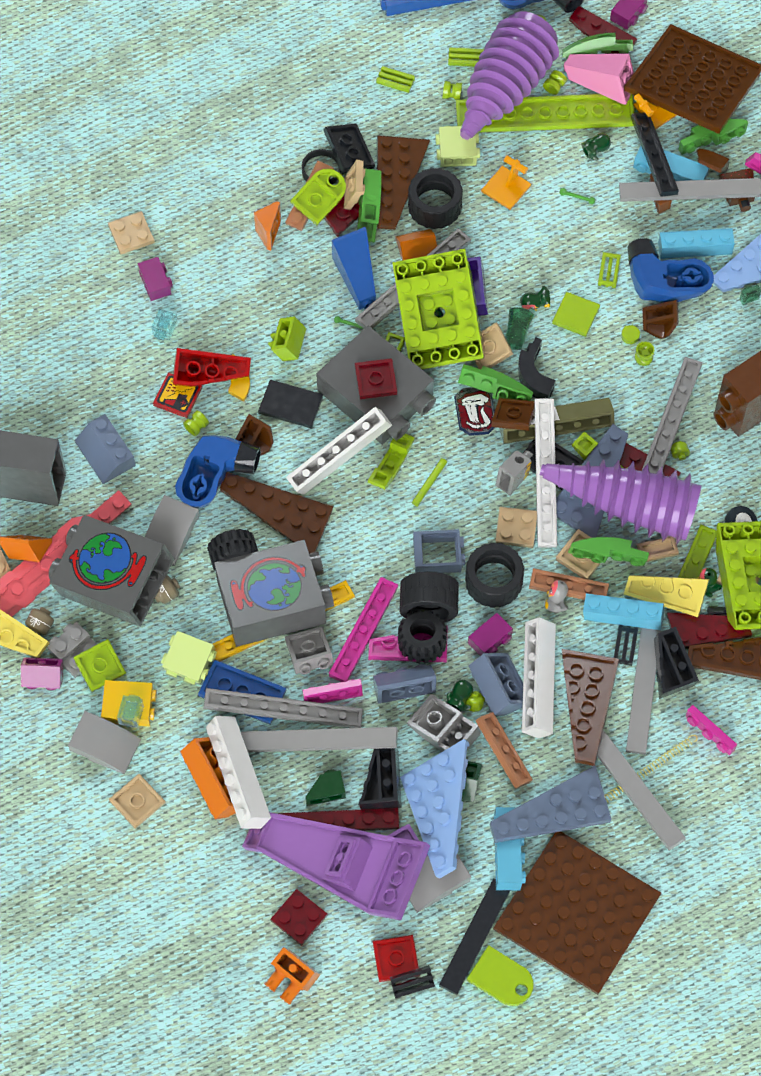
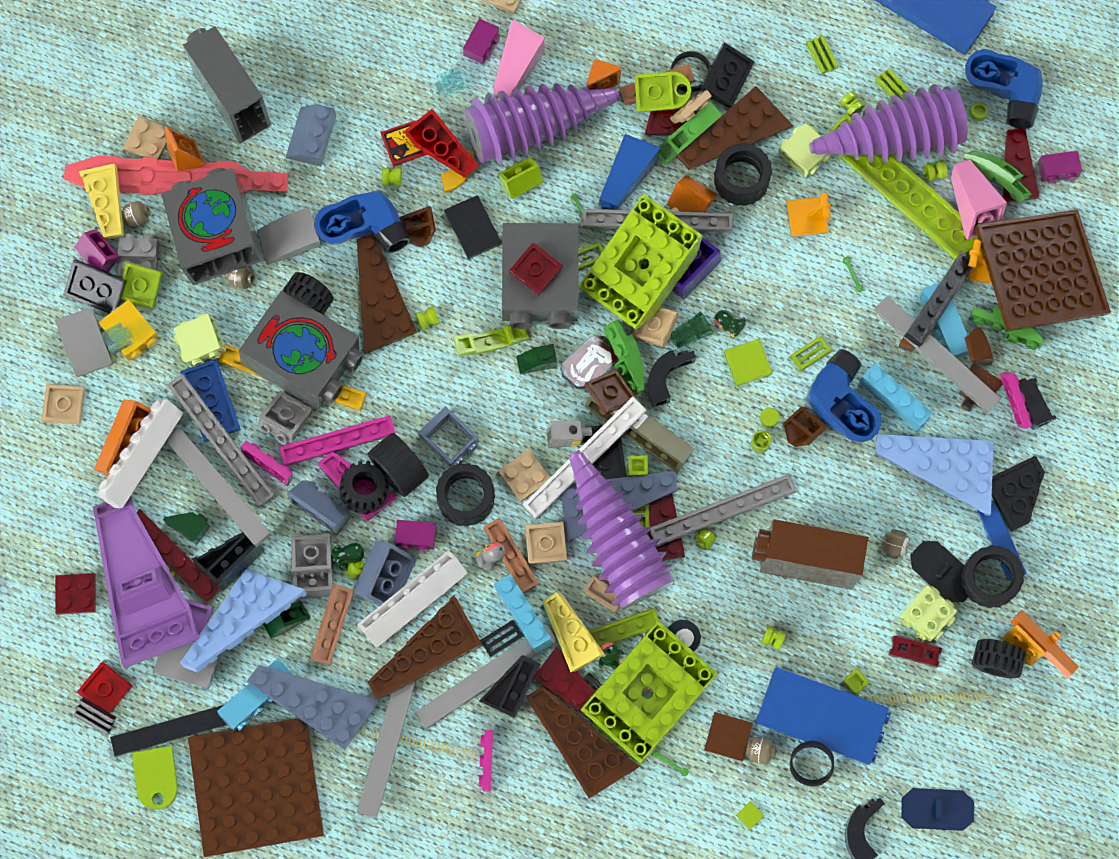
camera: 45 degrees right, 10 degrees up
(68, 698) = (94, 287): none -> tile
(193, 261) = (519, 58): none -> bright pink slope
(252, 294) = (528, 119): none -> medium lavender cone
(292, 967) = (29, 627): orange brick -> none
(331, 489) = (429, 317): none -> lime wheel
(339, 451) = (455, 296): white brick -> none
(429, 482) = (502, 381): lime bar -> none
(437, 443) = (537, 359): none -> dark green slope
(596, 144) = (911, 249): dark green animal -> none
(600, 548) = (558, 552): bright green slope -> none
(750, 294) = (890, 475): clear green plate -> none

